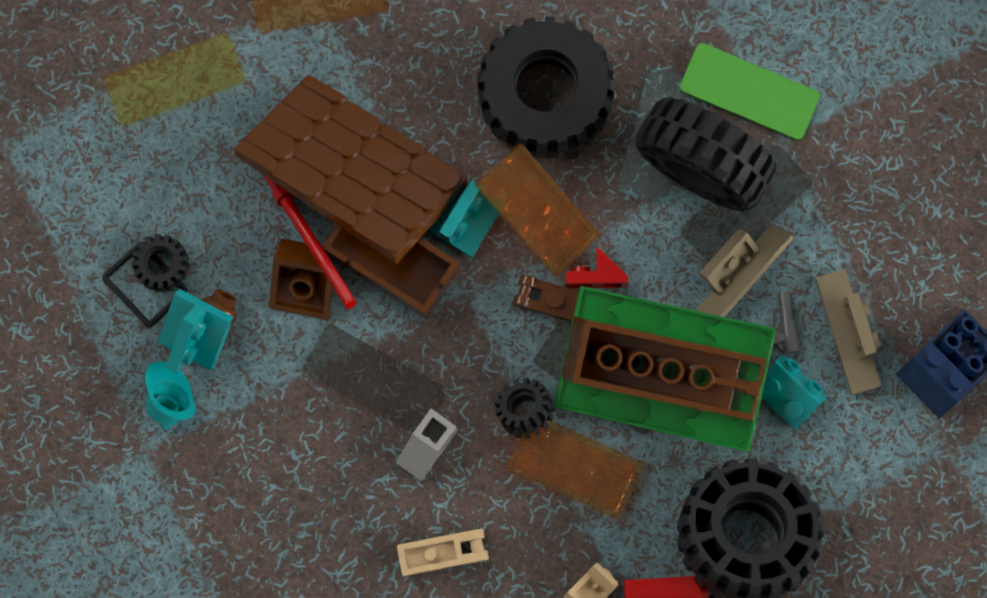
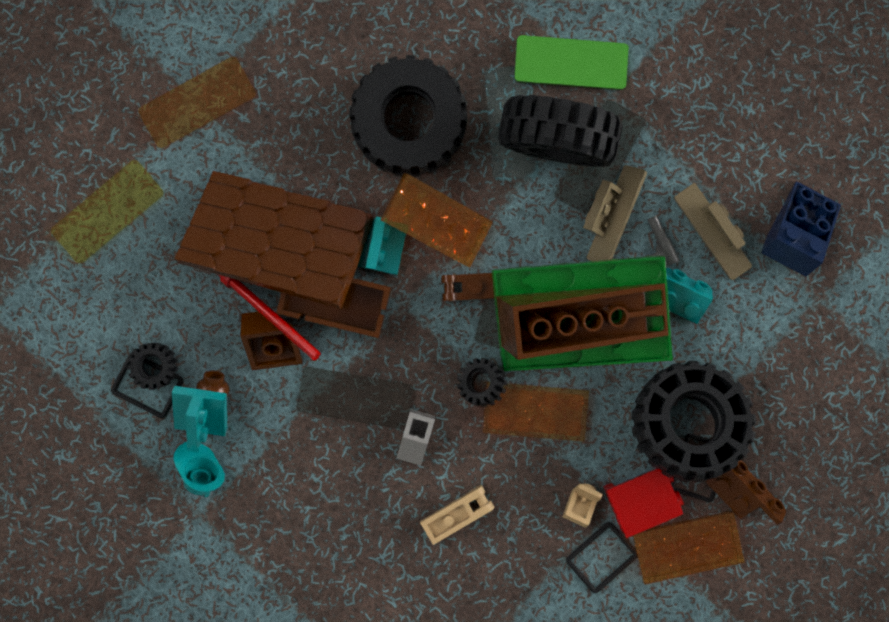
camera: 25 degrees left, 10 degrees up
(606, 274) = (508, 252): red slope -> none

